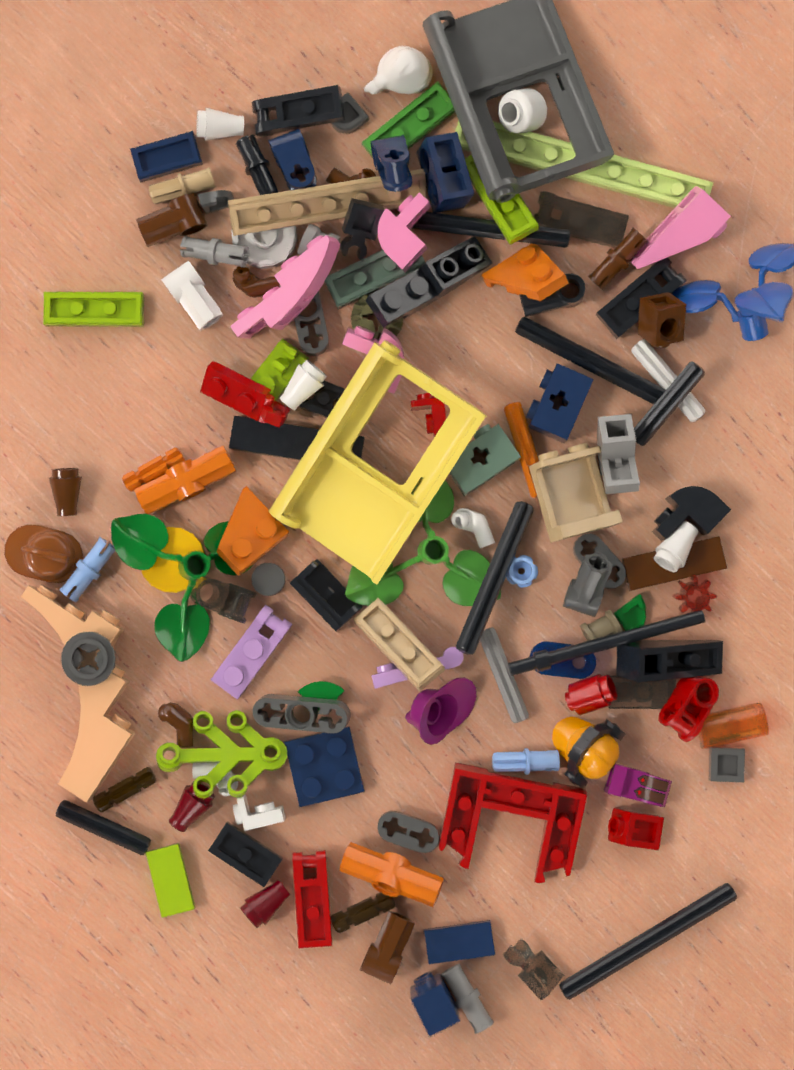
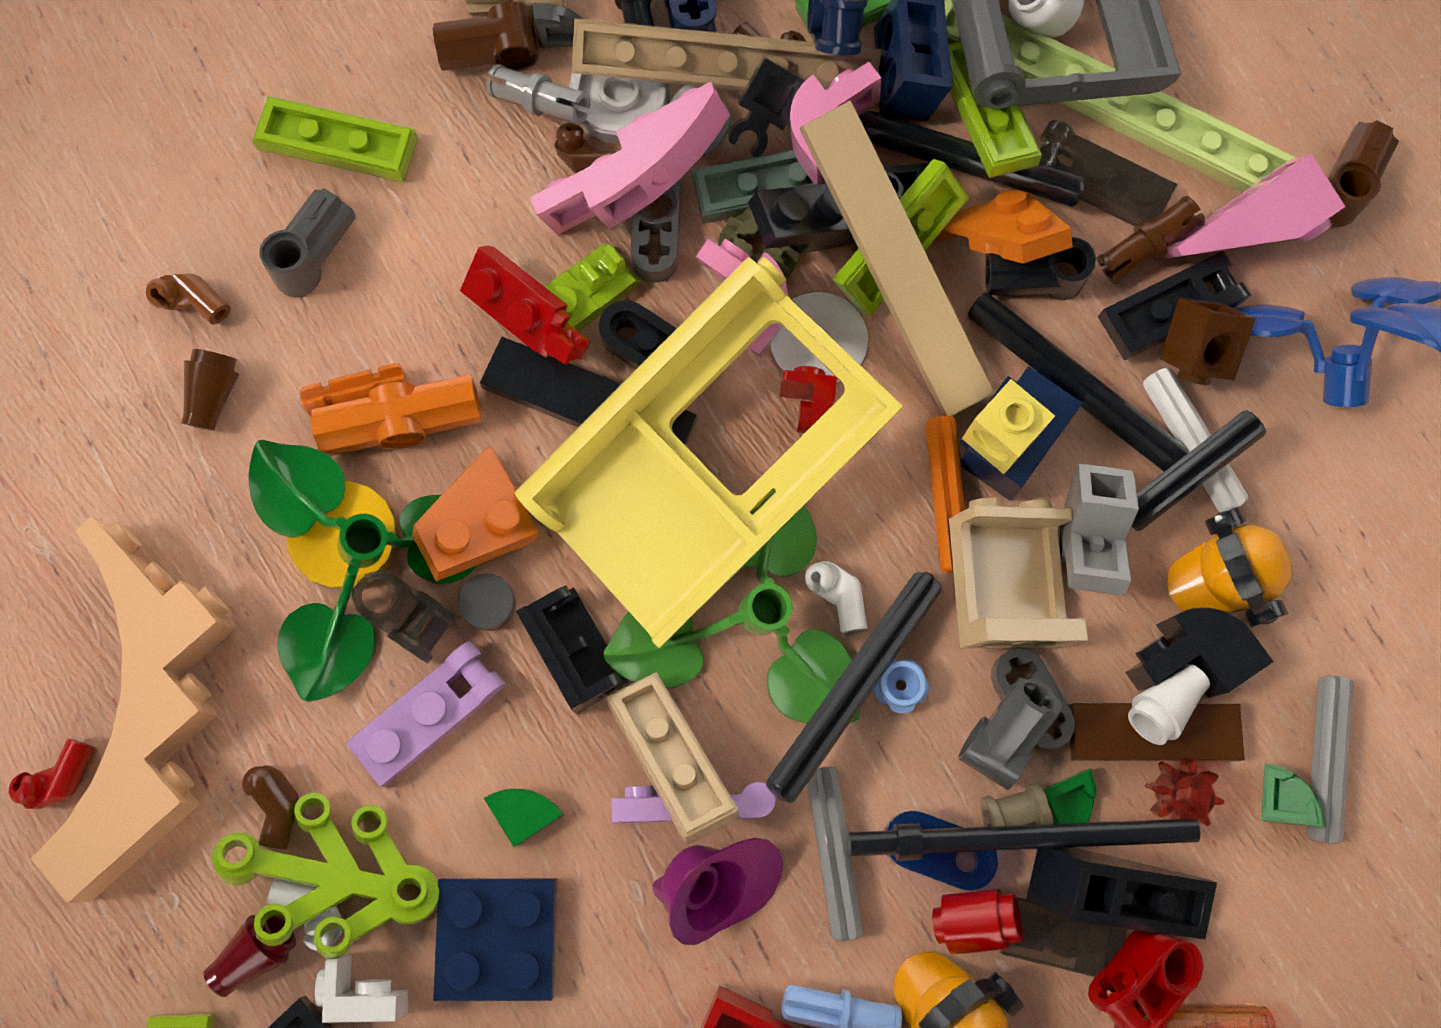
camera: 10 degrees right, 10 degrees down
(33, 432) = (186, 292): none -> dark orange arm
(42, 553) = (145, 480): dark orange piece -> none
(51, 740) = (53, 783): none -> red arm
(72, 658) = (122, 647): dark grey gear -> none
(88, 569) = (201, 519): light blue pin -> none
(99, 380) = (308, 239): none -> dark grey piece
(103, 827) = (92, 955): black axle -> none
(124, 789) = (148, 897): dark brown axle -> none
(189, 290) = (485, 142): white piece -> none
(303, 384) = (619, 307): white cone -> none
(324, 724) = (448, 808): dark grey beam -> none
(433, 359) = (836, 318): none -> white sticker
(463, 316) = (896, 259): none -> tan tile
(464, 296) = (930, 207): none -> lime tile
(499, 457) = (905, 491): sand green brick -> none
(550, 409) = (1007, 426): none -> light yellow brick
(702, 458) = (1234, 570): none -> light orange cap
(740, 180) = (1360, 168): none -> reddish brown piece
(756, 584) = (1290, 799): none -> green tile
(777, 555) = (1331, 755): none -> light grey axle

